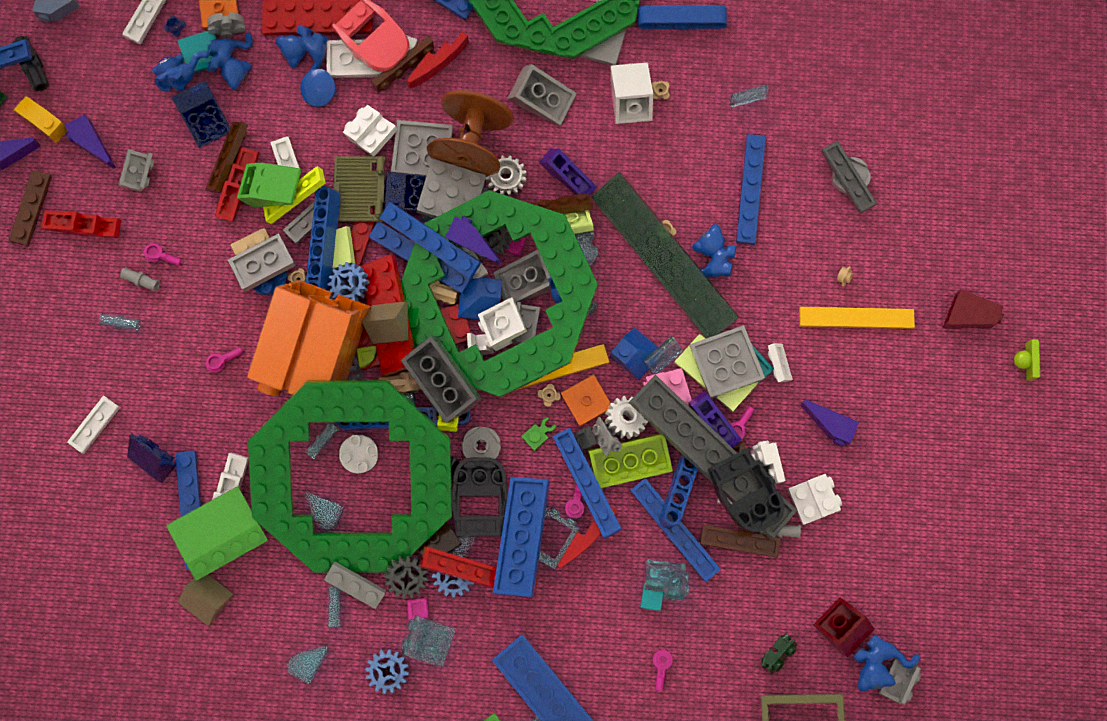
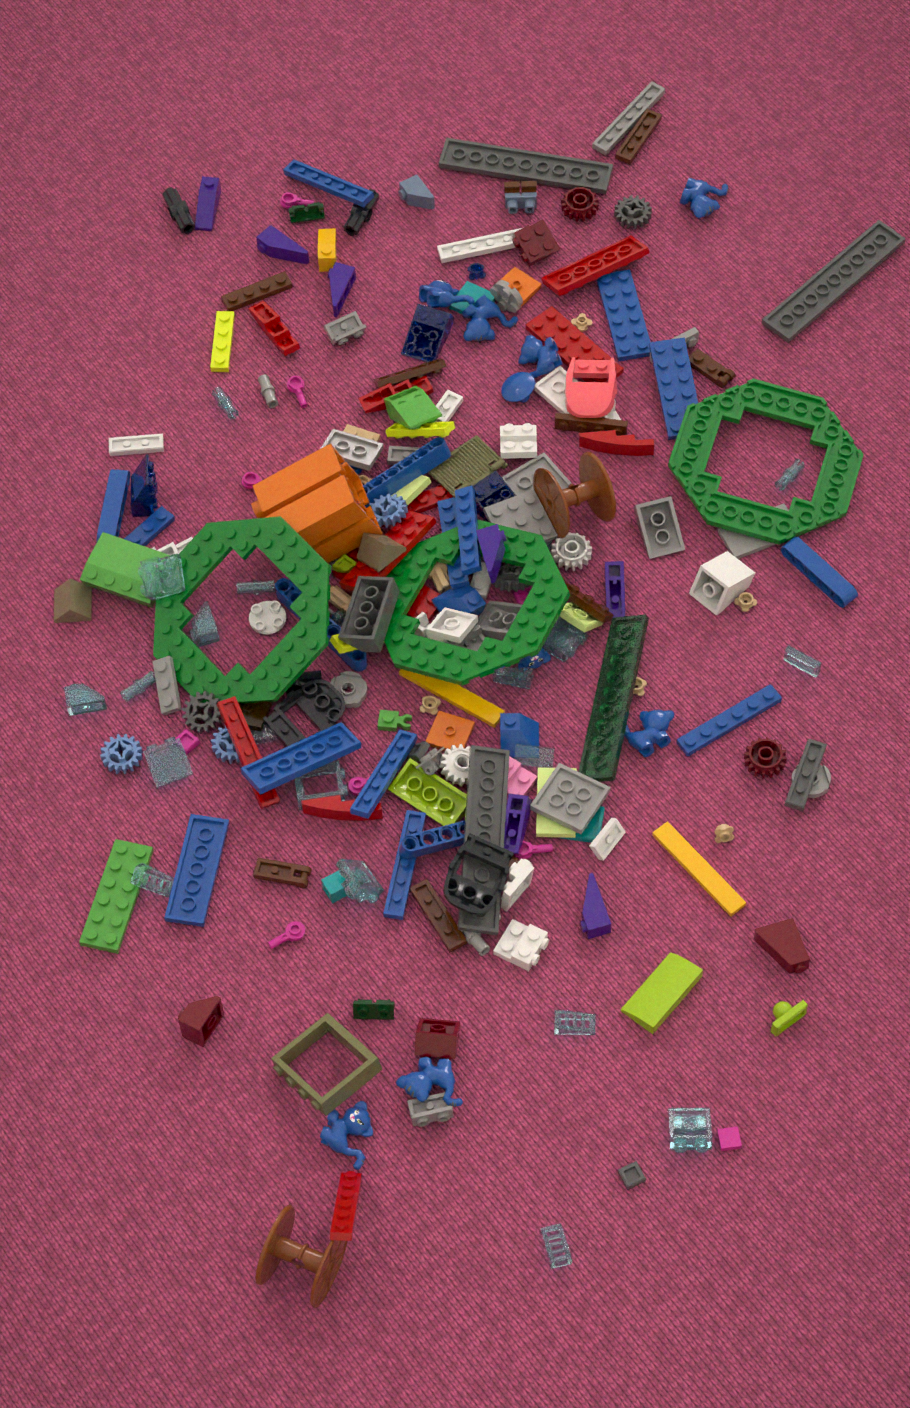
camera: 55 degrees right, 20 degrees down
(54, 274) = (222, 341): none -> neon yellow plate
(140, 491) = (114, 503): none -> blue beam
(259, 515) = (161, 576): none -> clear light blue plate
(602, 629) = (282, 872): none -> reddish brown plate
(802, 200) = (765, 766): none -> dark red gear
(912, 524) = (574, 1030): none -> clear light blue slope
(936, 430) = (662, 992): none -> lime slope
(1064, 576) = (631, 1175): none -> dark grey tile
(1065, 505) = (690, 1129): none -> clear light blue plate
(1090, 483) = (729, 1138): none -> dark pink tile
(1095, 684) = (559, 1260): none -> clear light blue slope

